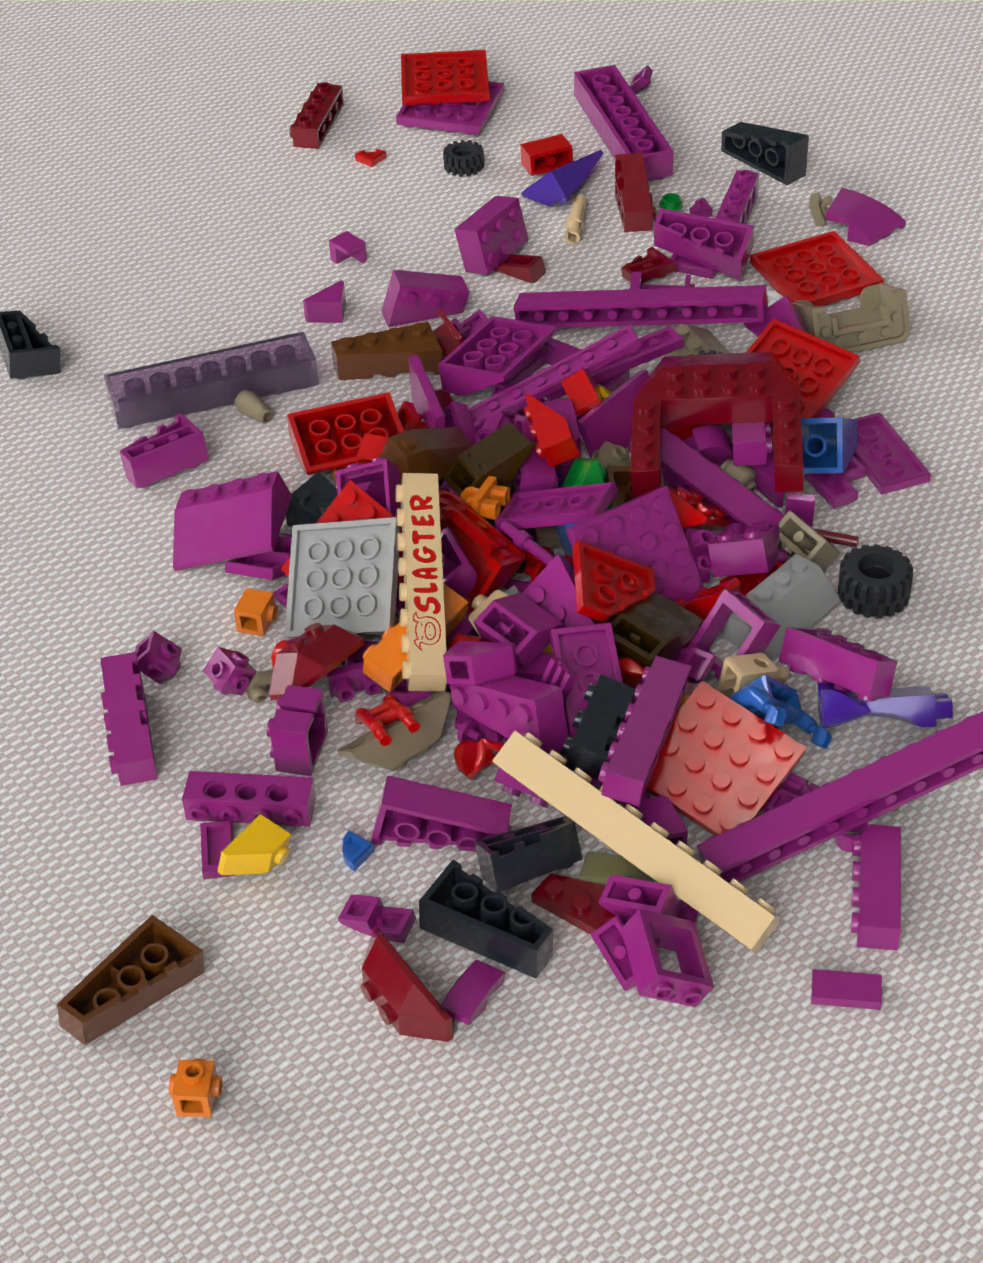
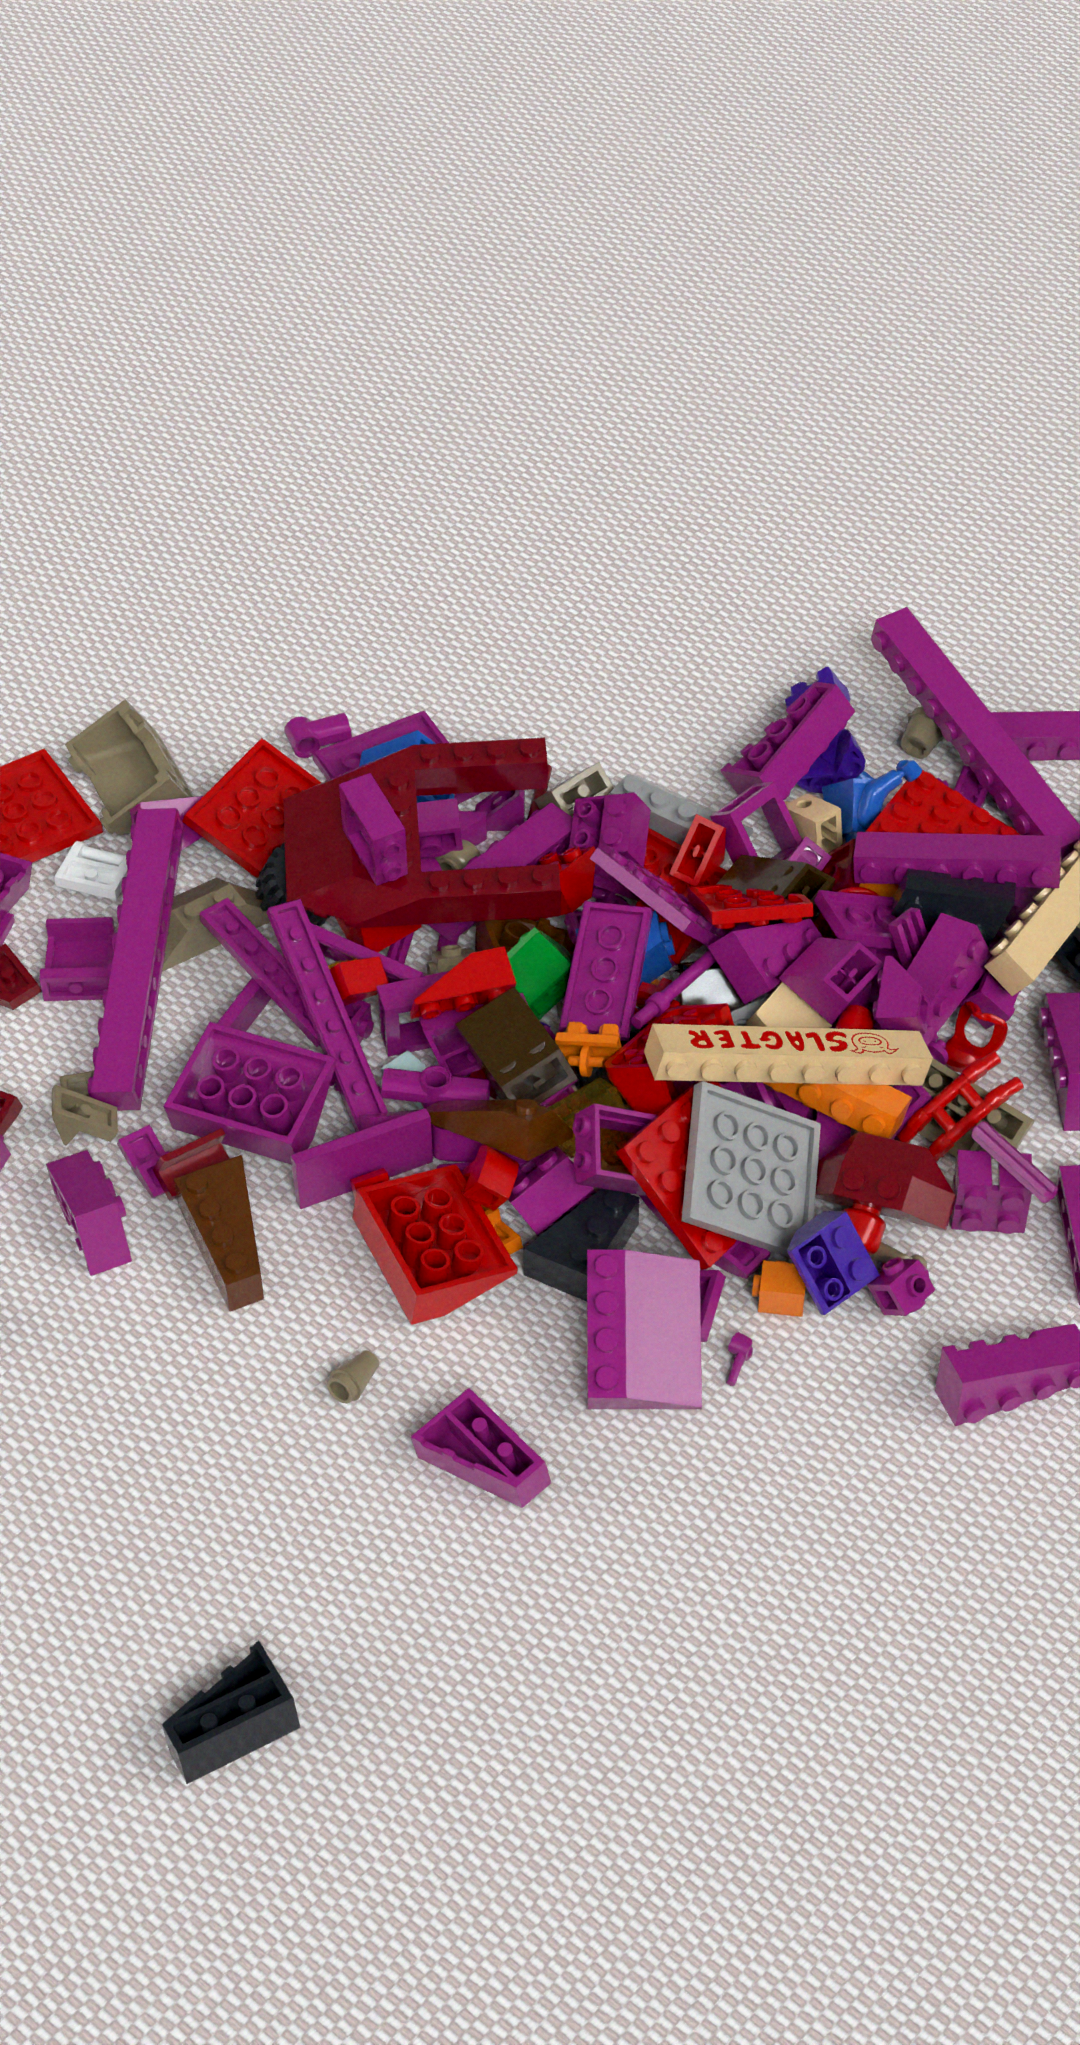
camera: 100 degrees left, 5 degrees up
(158, 657) = (906, 1374): magenta brick -> none
(210, 379) = (312, 1432): clear purple brick -> none
(212, 590) = (741, 1347): none -> magenta hand
(256, 621) = (831, 1259): none -> dark purple slope
(292, 714) = (1014, 1162): none -> magenta axle
(326, 305) = (95, 1325): magenta slope -> none
(505, 291) = (78, 1112): none -> dark tan slope
(673, 332) = (373, 829): none -> magenta window
(875, 581) = (627, 740): black tyre -> none
(900, 412) = (309, 736): none -> magenta piece

